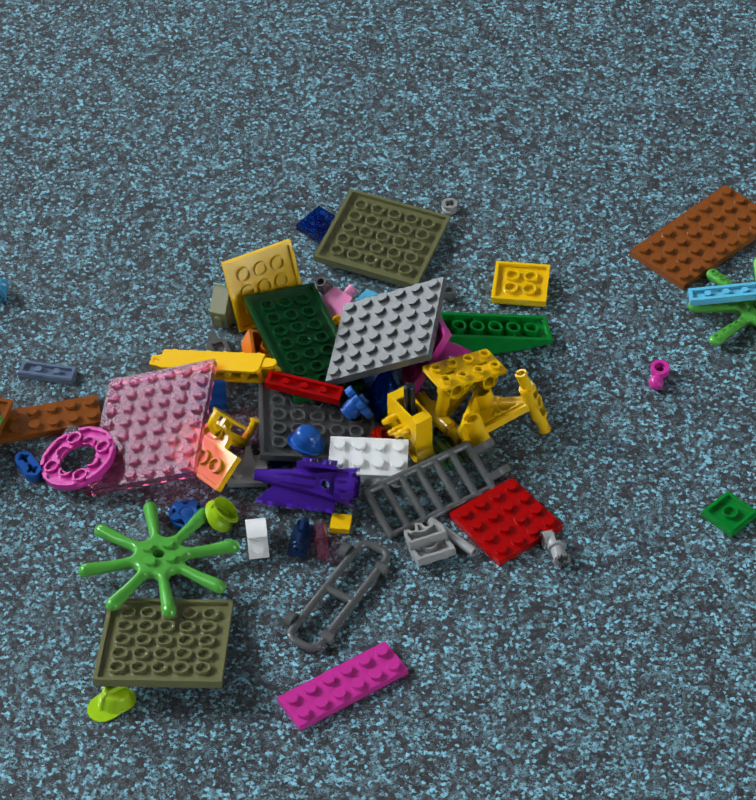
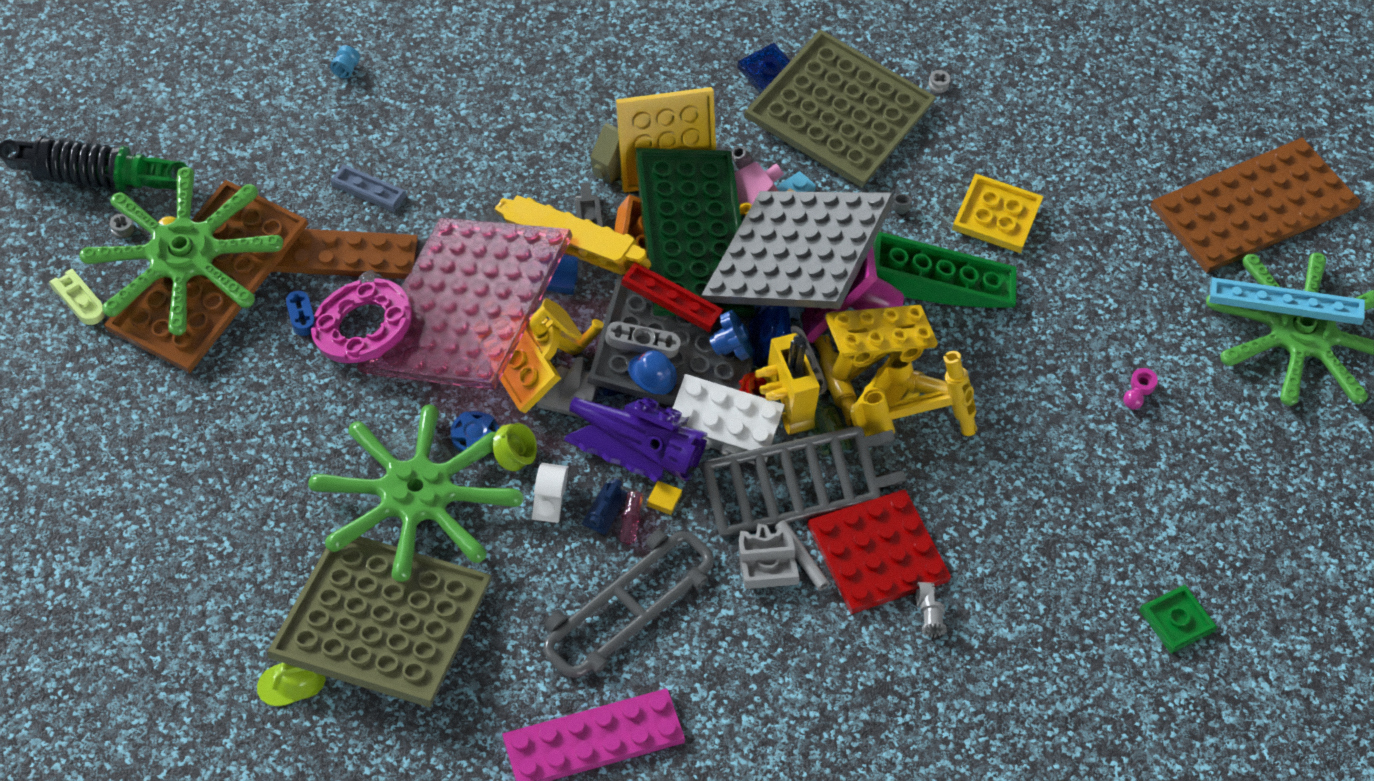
camera: 10 degrees right, 10 degrees up
(277, 417) = (633, 345): none -> light grey beam

